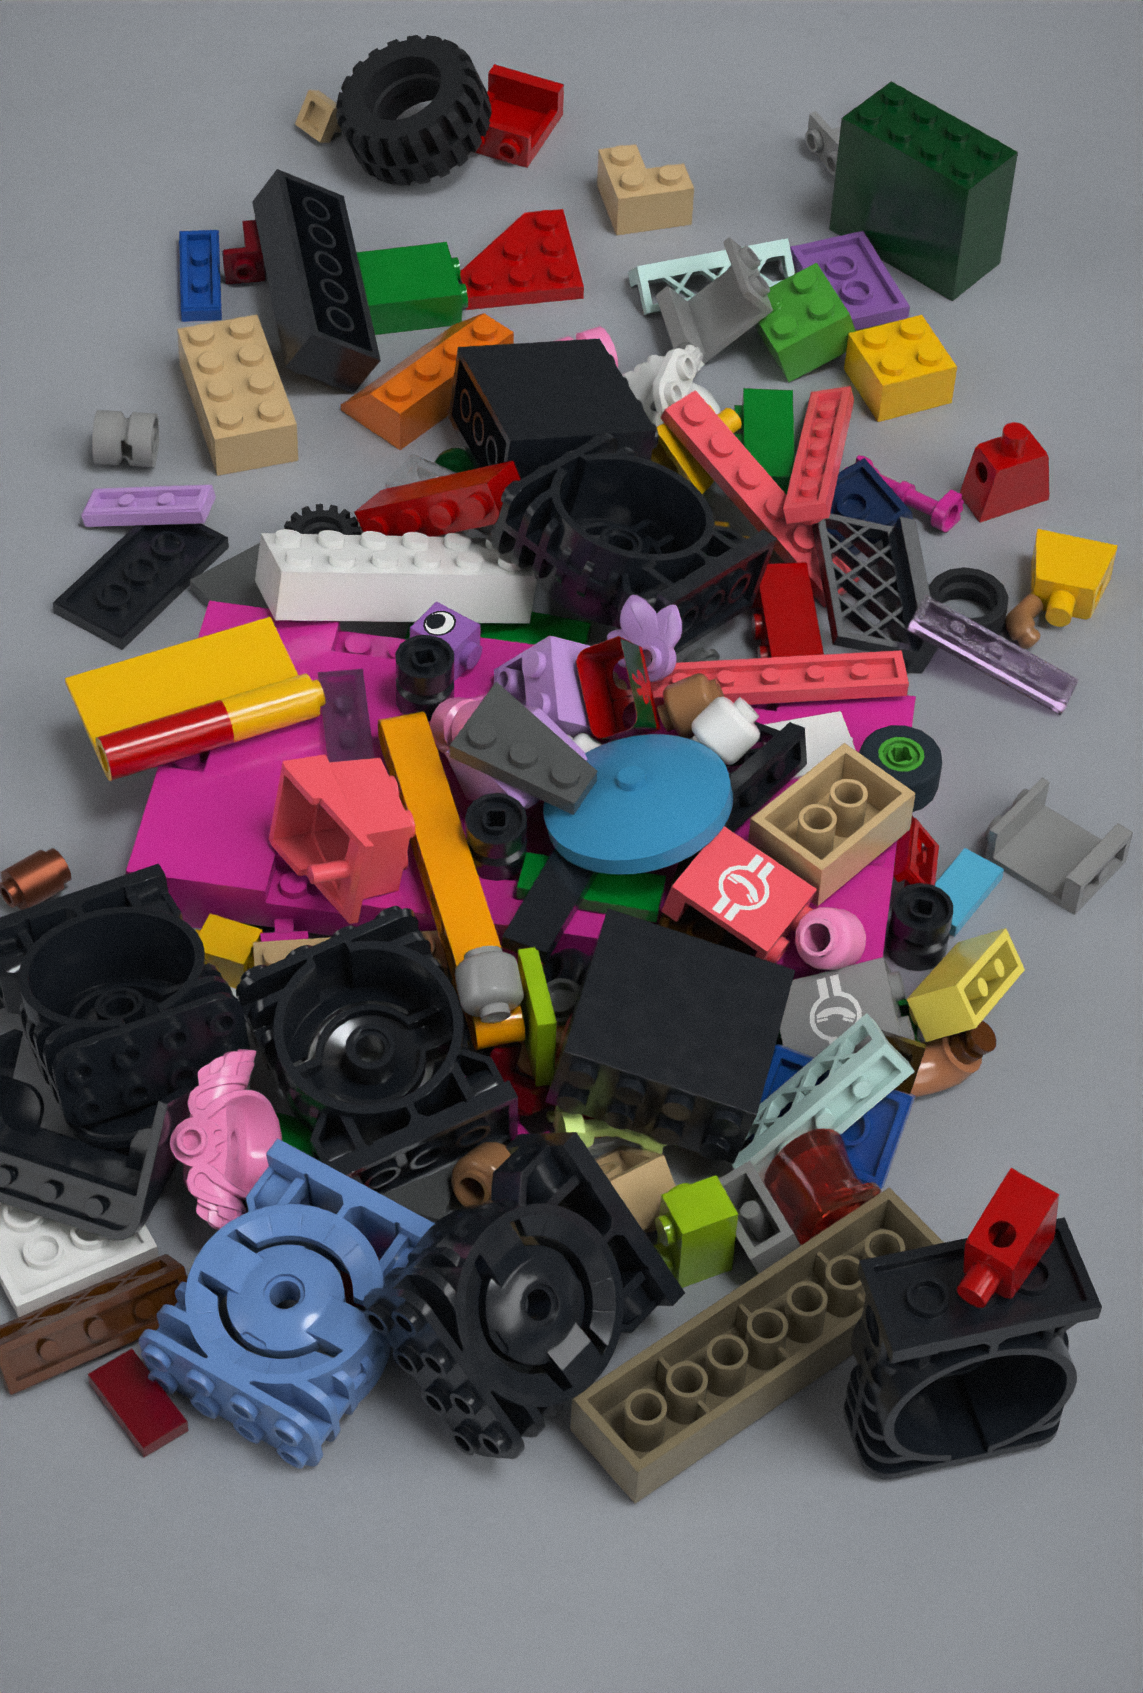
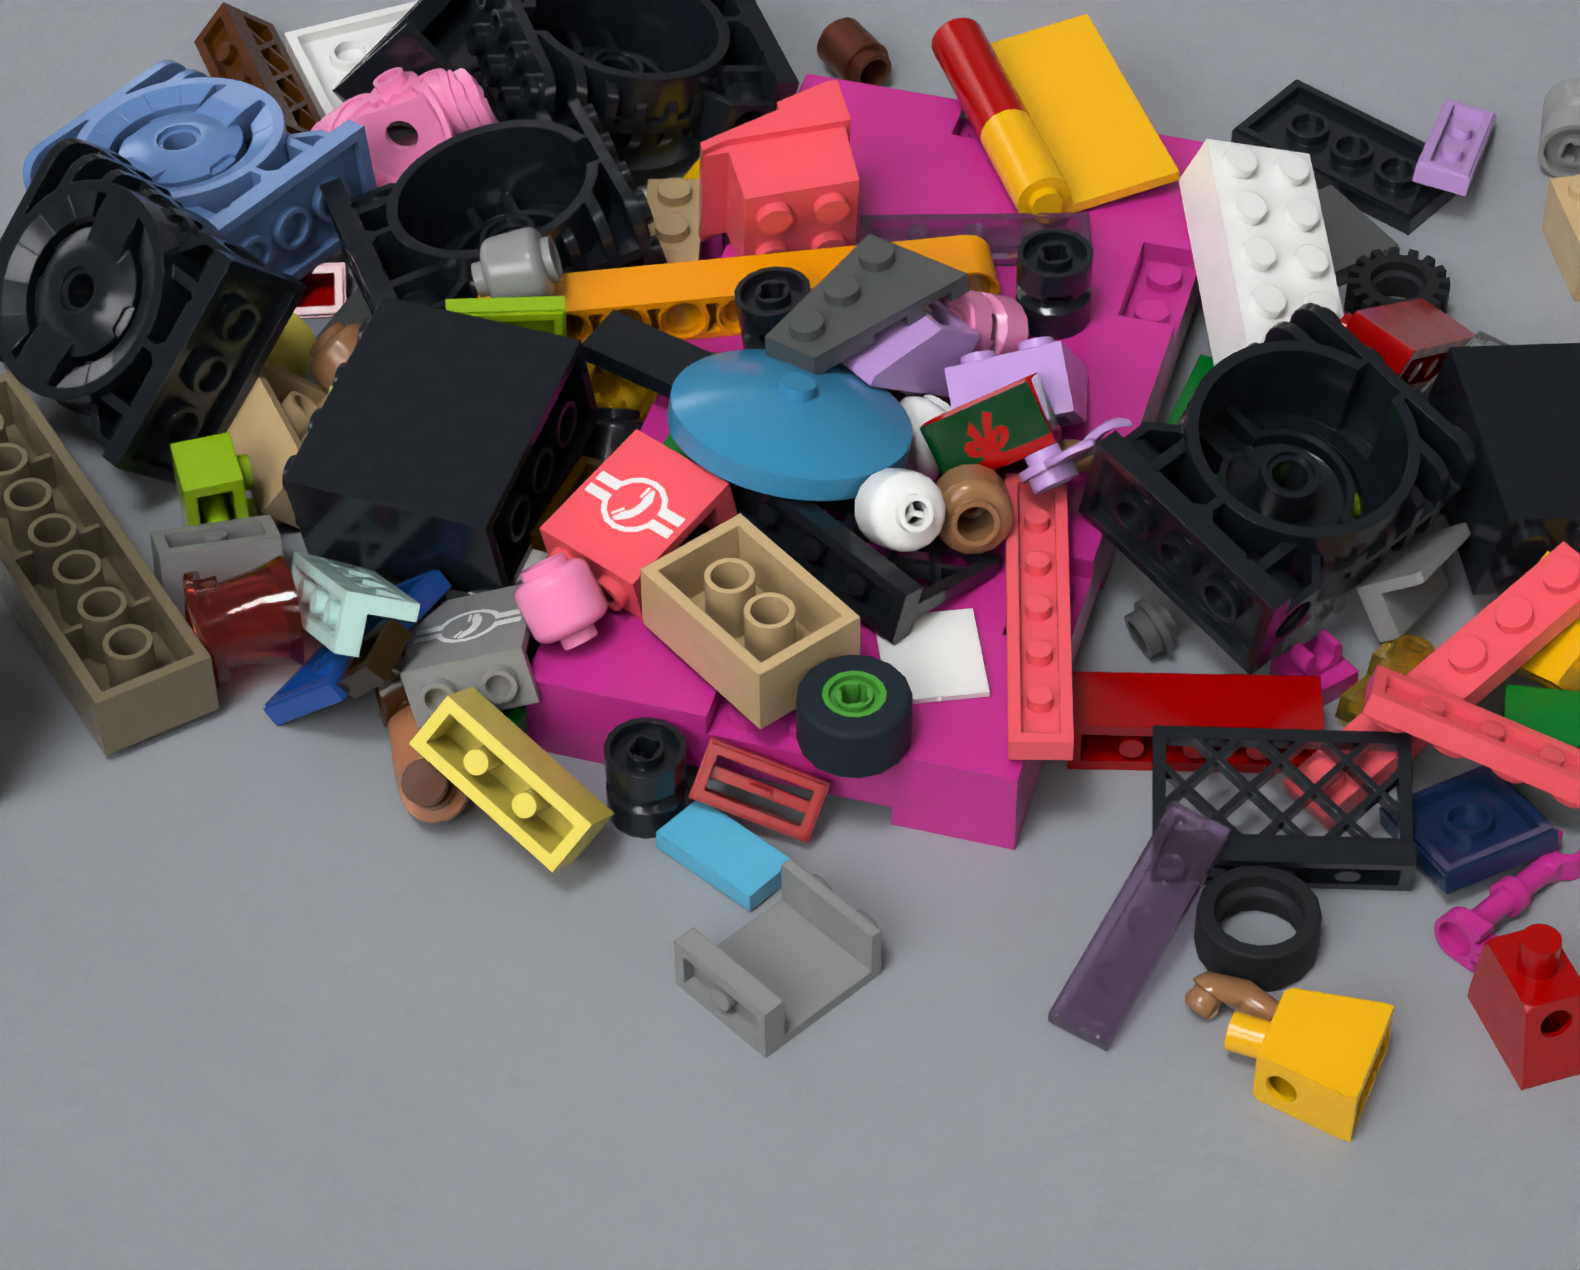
camera: 100 degrees right, 5 degrees down
(456, 630) = (1126, 314): medium lavender brick -> none

